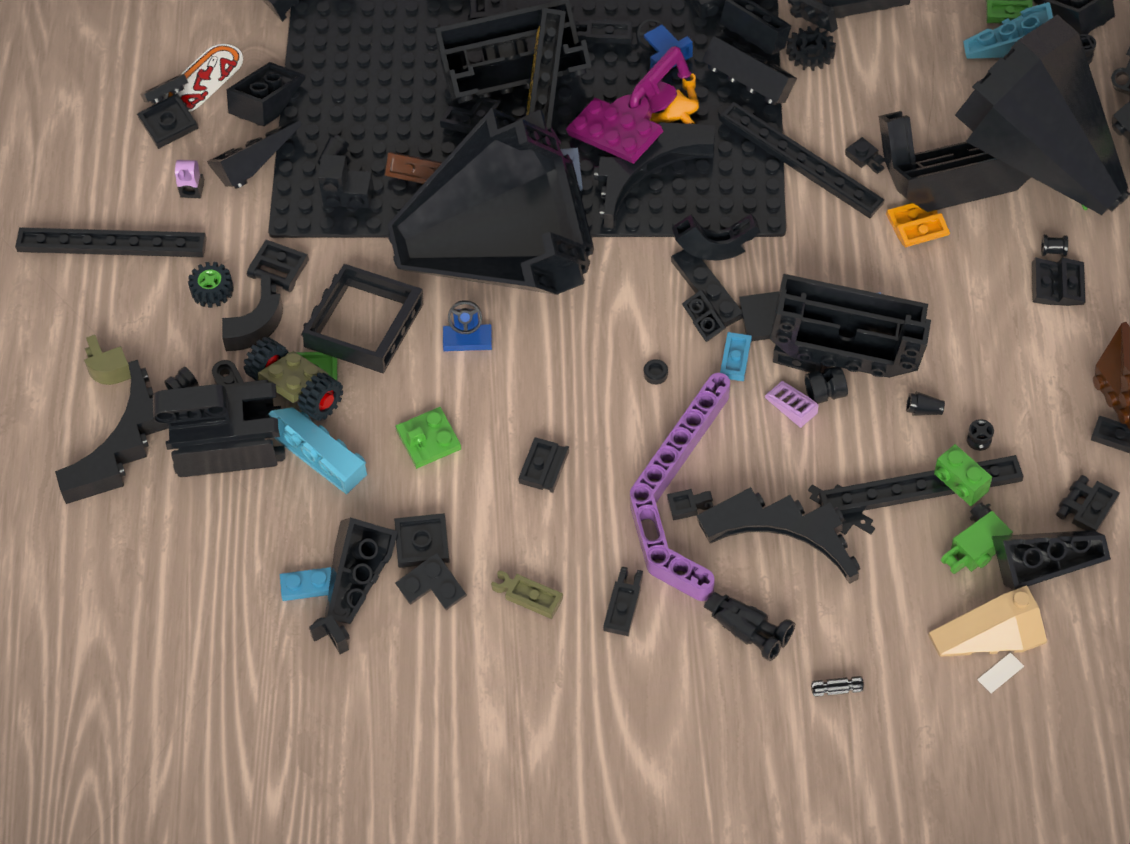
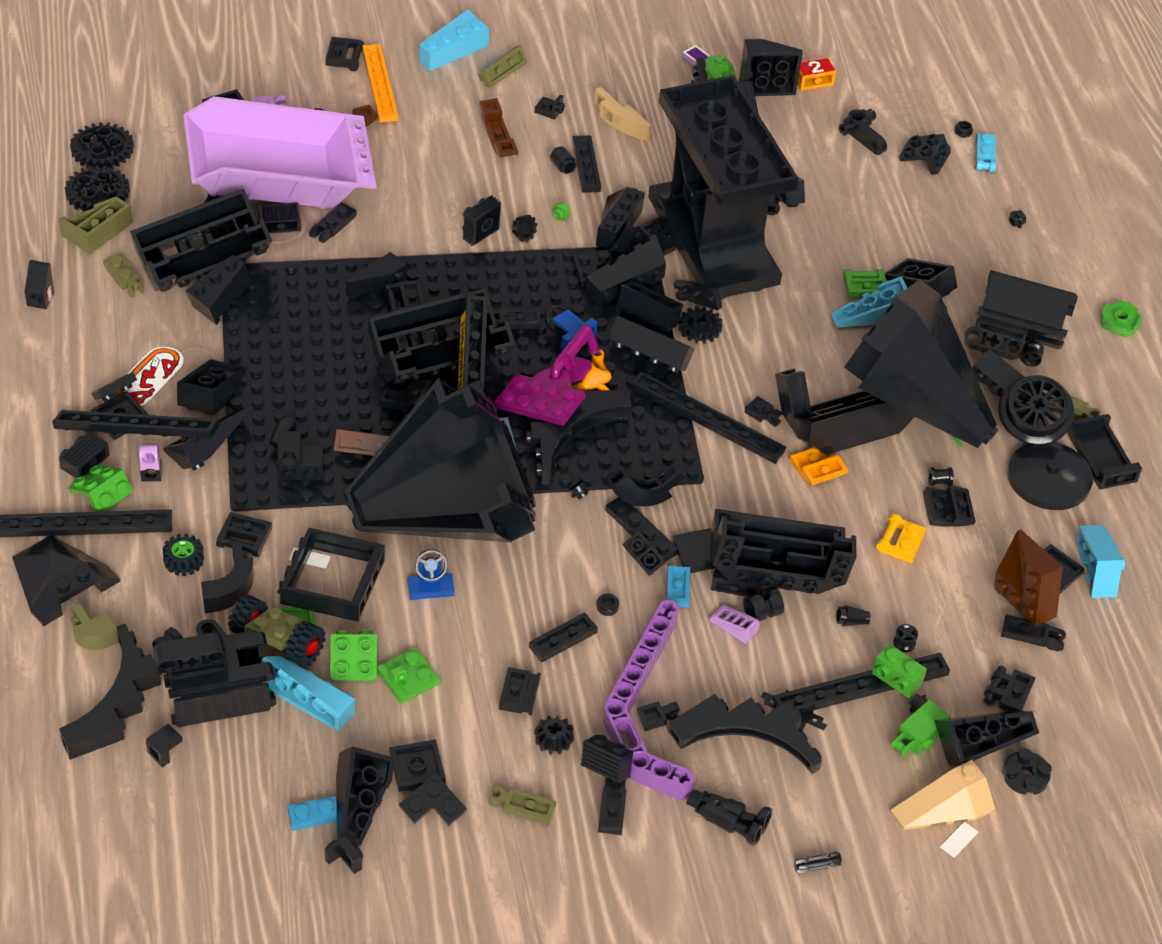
camera: 15 degrees left, 10 degrees down
(78, 295) = (55, 573): none -> black wedge
(122, 165) = (83, 455): none -> black brick
(137, 202) = (102, 486): none -> bright green bracket
(159, 494) = (161, 743): none -> black panel
(179, 134) = (136, 424): none -> black plate
(352, 298) = (315, 559): none -> white sticker
(372, 412) = (353, 656): none -> bright green bracket
(572, 517) = (554, 734): none -> black gear
(600, 406) = (563, 637): none -> black plate
(623, 550) = (607, 758): none -> black brick
(645, 236) = (579, 489): none -> black plate
(1003, 321) = (908, 541): none -> yellow plate
(1090, 615) = (1030, 761): none -> black plate

